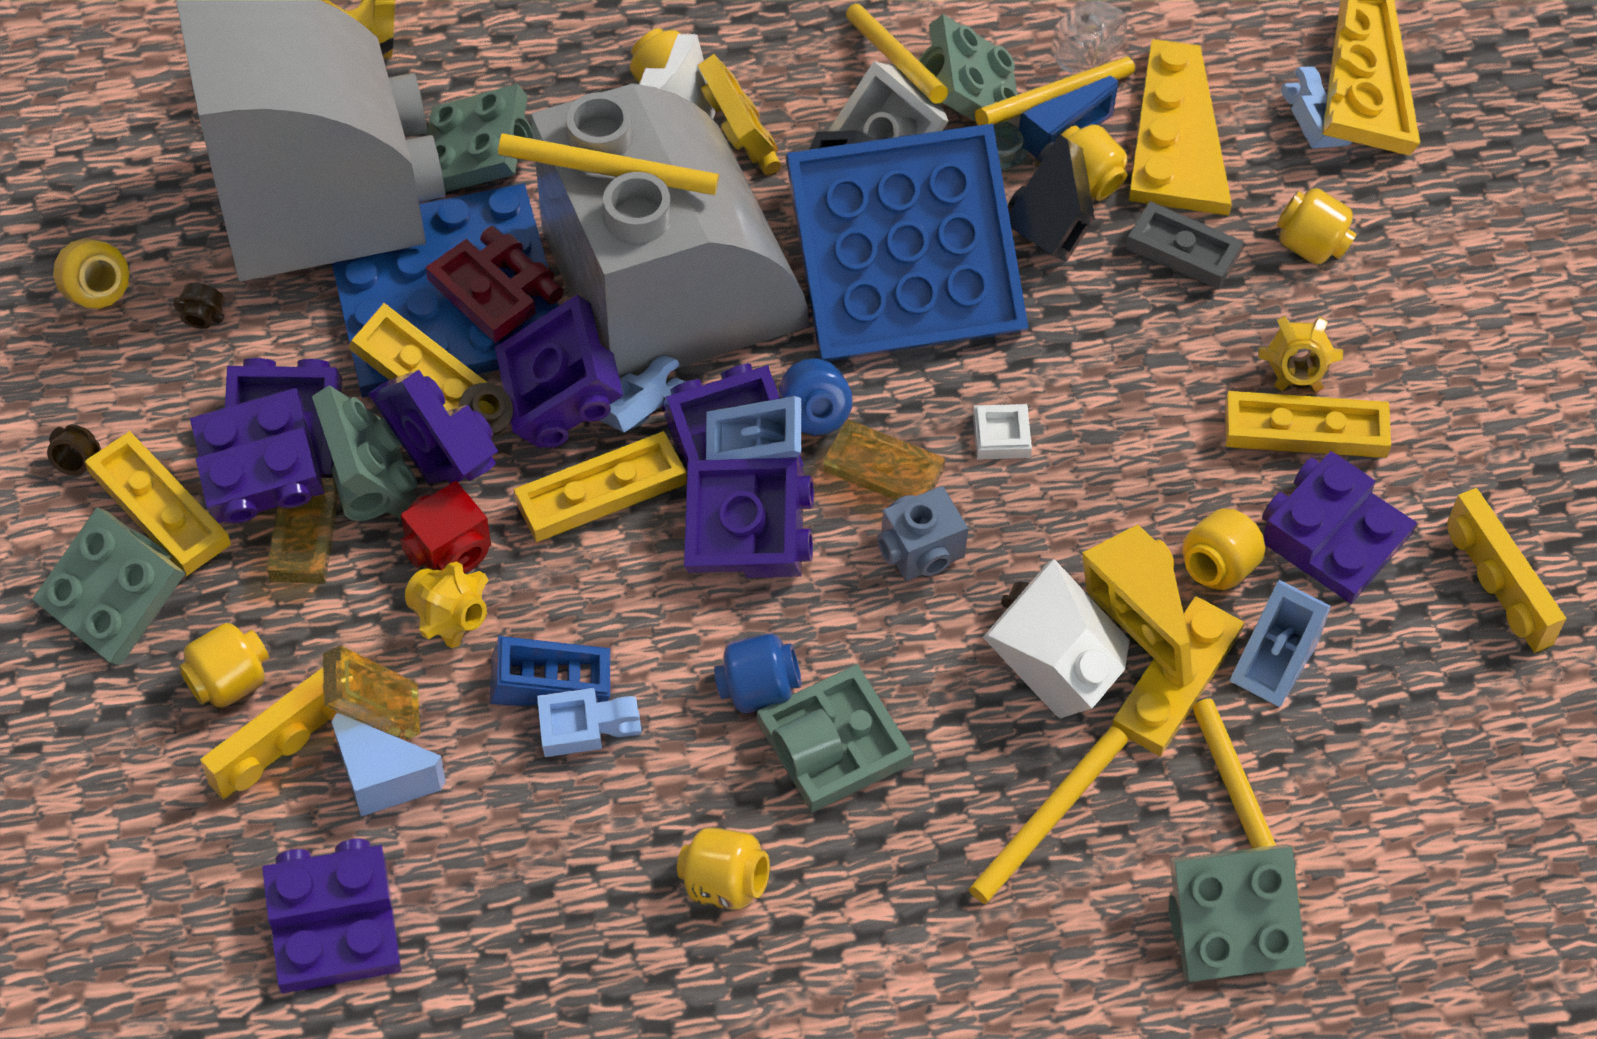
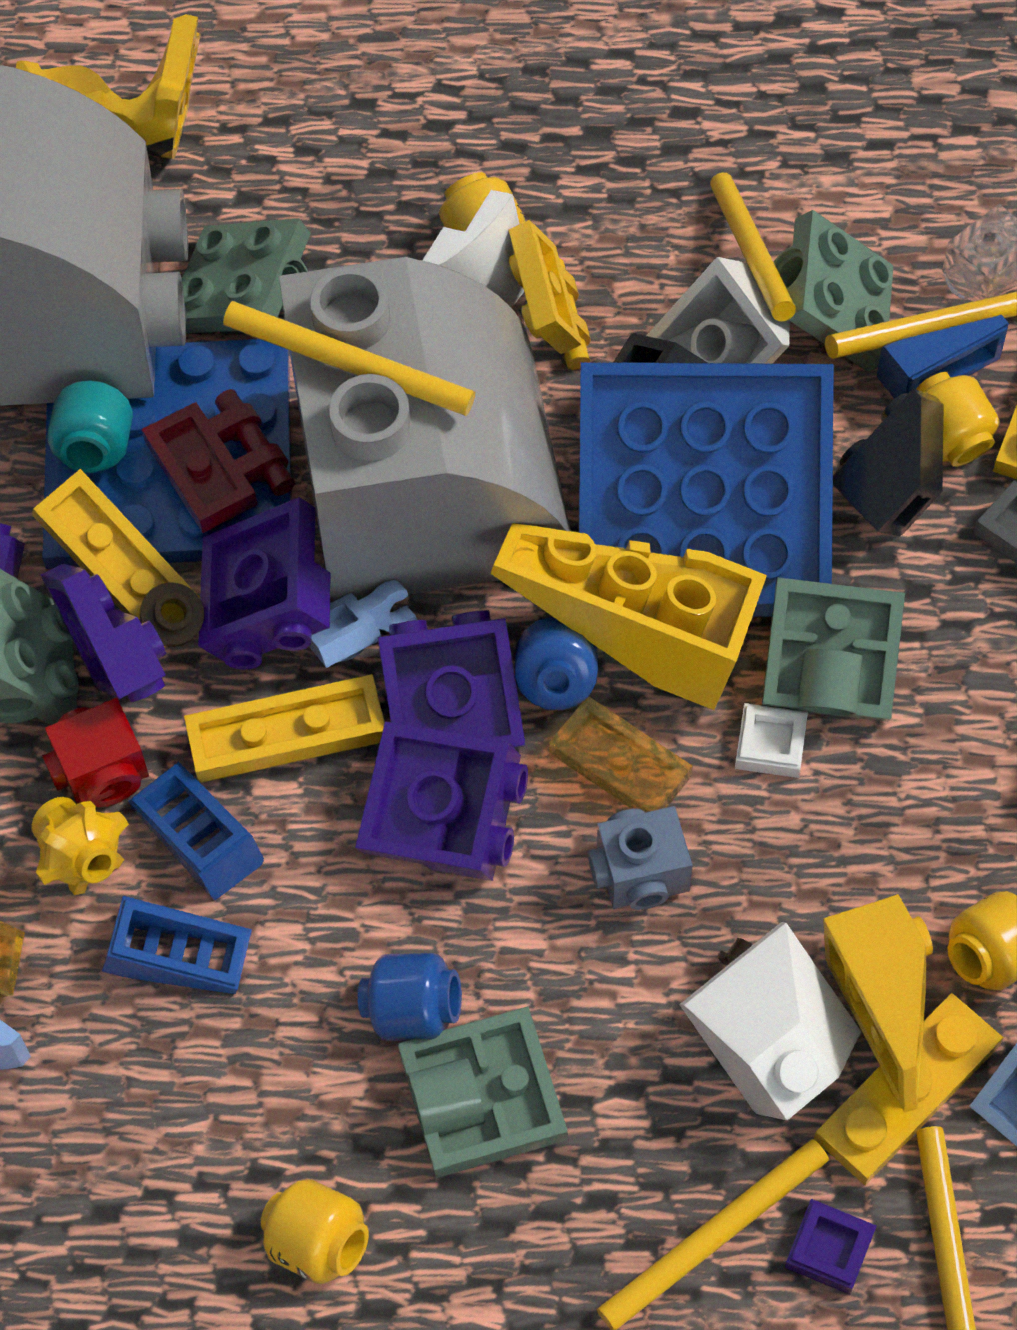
camera: 15 degrees right, 5 degrees up
(380, 271) = (90, 426): none -> teal head
(568, 601) = (223, 858): none -> blue slope
(575, 721) = (190, 1013): light blue plate -> none
(755, 430) = (467, 701): light blue slope -> none
(895, 346) = (652, 612): none -> yellow wedge
(1011, 140) = (857, 368): clear light blue plate -> none
(1037, 350) = (833, 649): none -> sand green plate
(1145, 806) = (830, 1246): none -> dark purple tile

